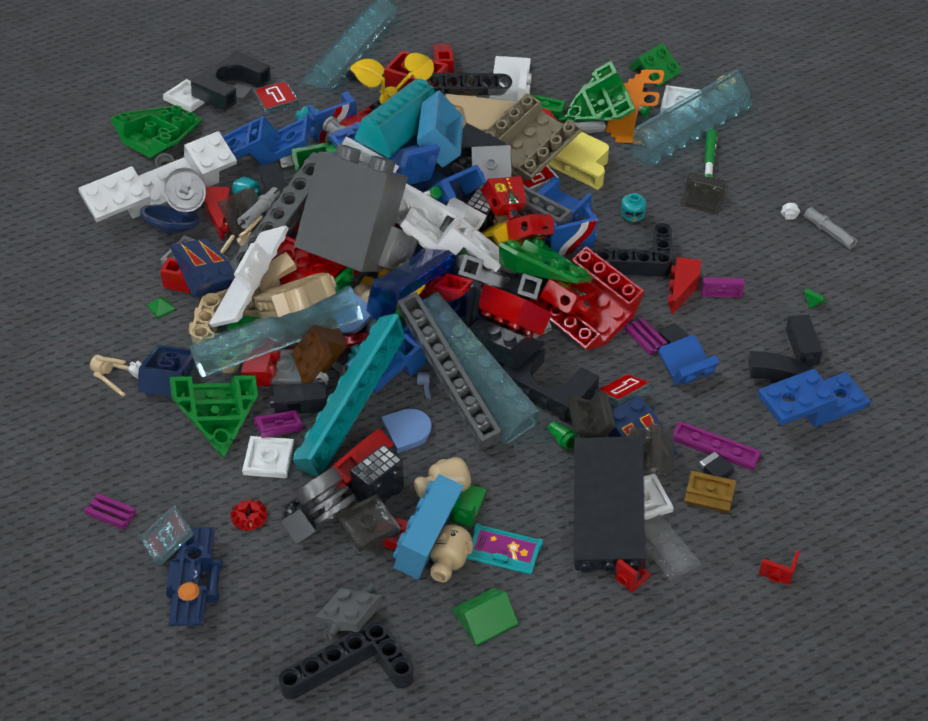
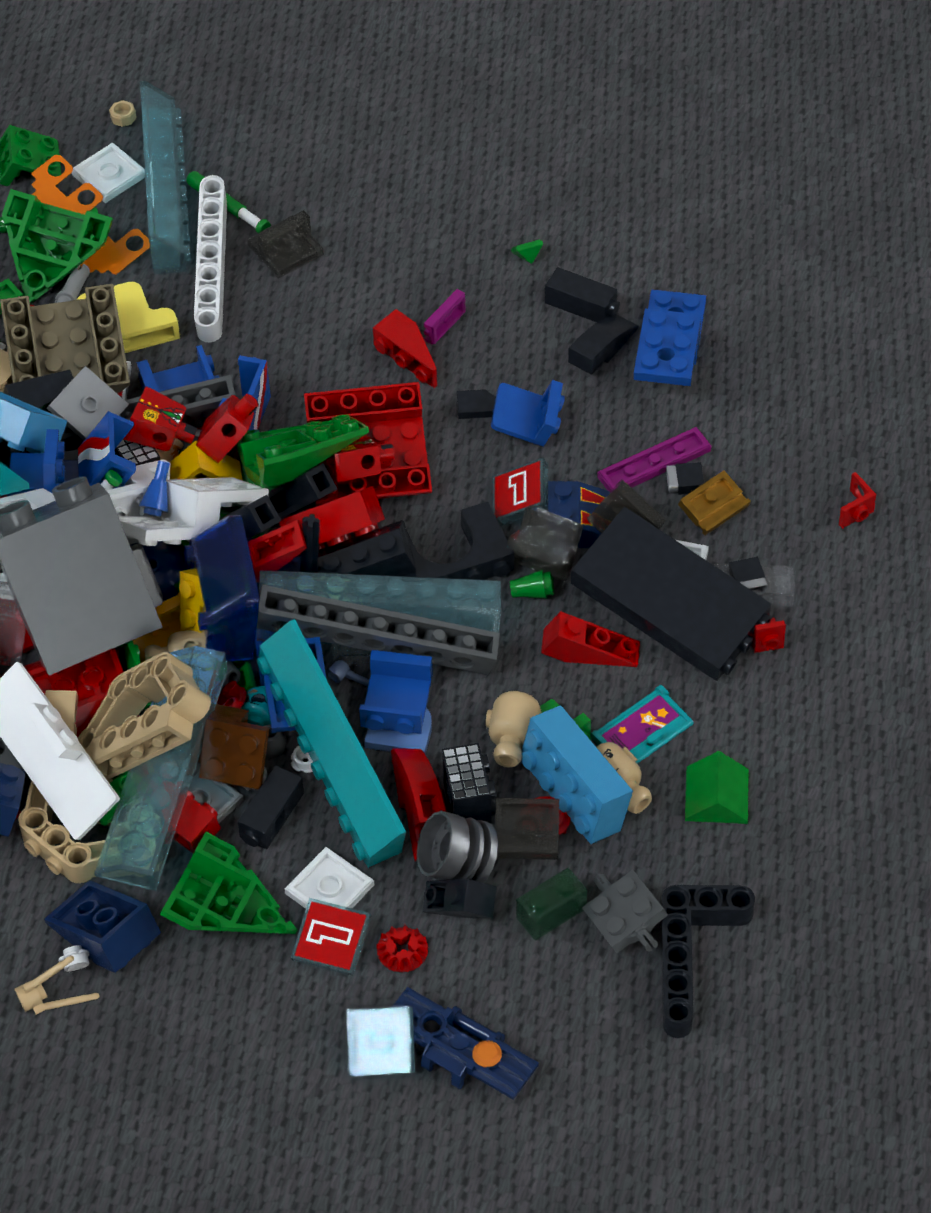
camera: 55 degrees left, 5 degrees up
(112, 511) = (276, 1081): magenta tile -> none
(230, 475) = (331, 937): none -> red tile
(280, 426) = (287, 866): magenta tile -> none
(328, 568) = (551, 903): none -> clear green piece
(423, 412) = (397, 692): none -> blue panel
(444, 219) = (156, 498): none -> blue cone
(542, 485) = (587, 643): none -> red slope
(633, 207) = (252, 320): teal head -> none
(642, 262) = (350, 355): black beam -> none
(648, 334) = (452, 425): magenta tile -> none
(658, 166) = (210, 259): none -> white beam
(663, 539) = (749, 573): none -> black piece
(790, 211) = (383, 187): white plate -> none
(824, 223) = (448, 169): light grey pin -> none

